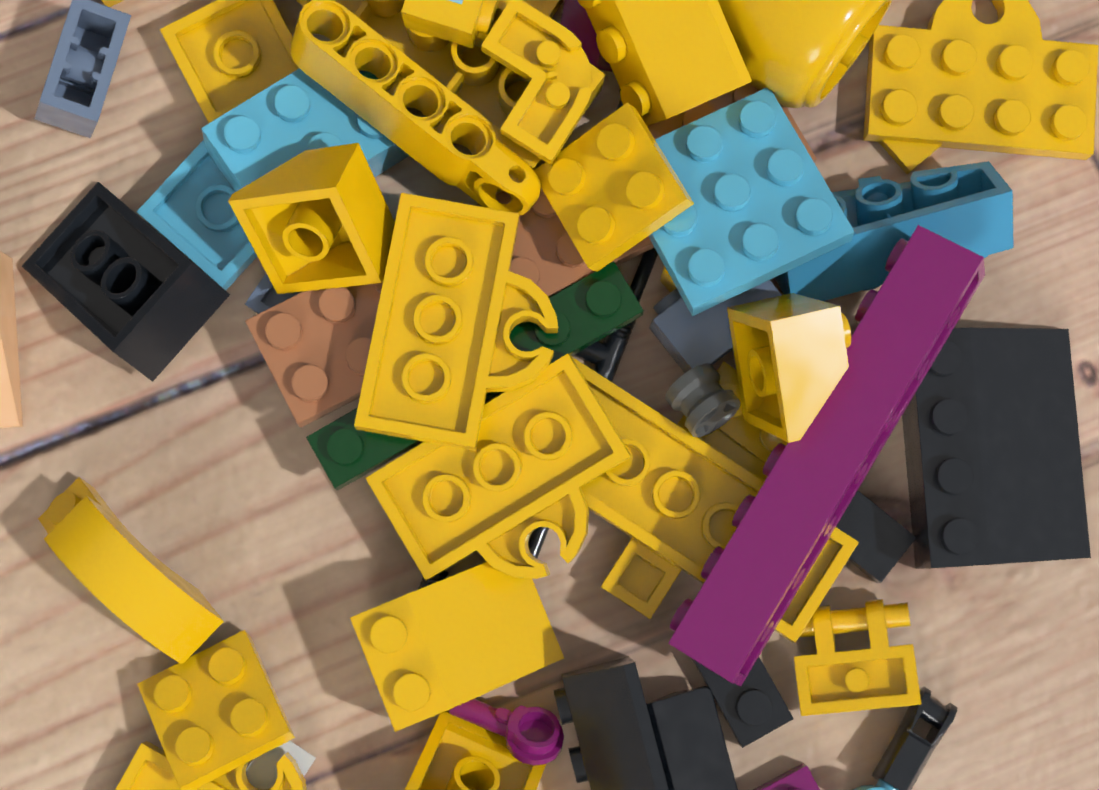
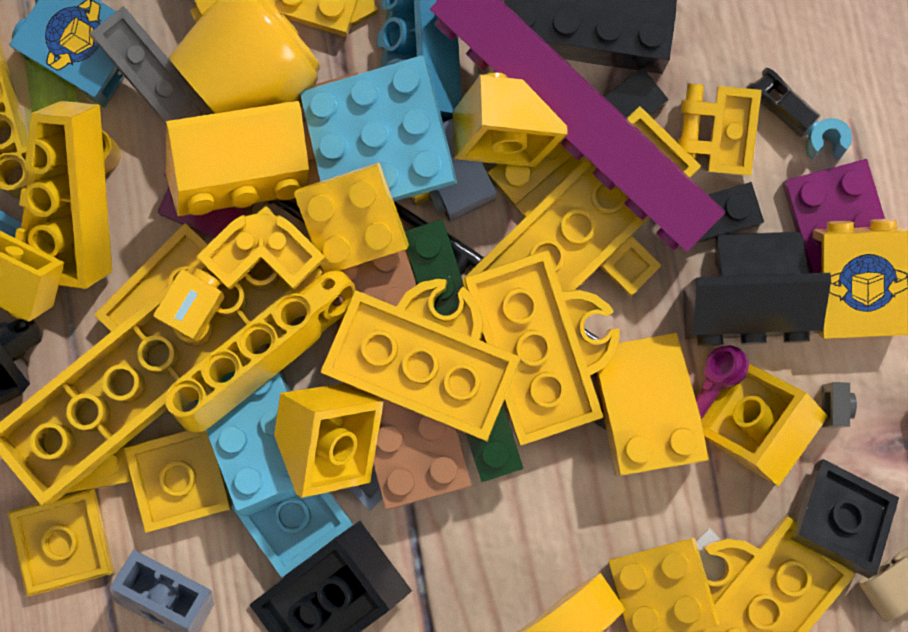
camera: 75 degrees left, 0 degrees up
(702, 400) = (515, 192): dark grey wheel -> none

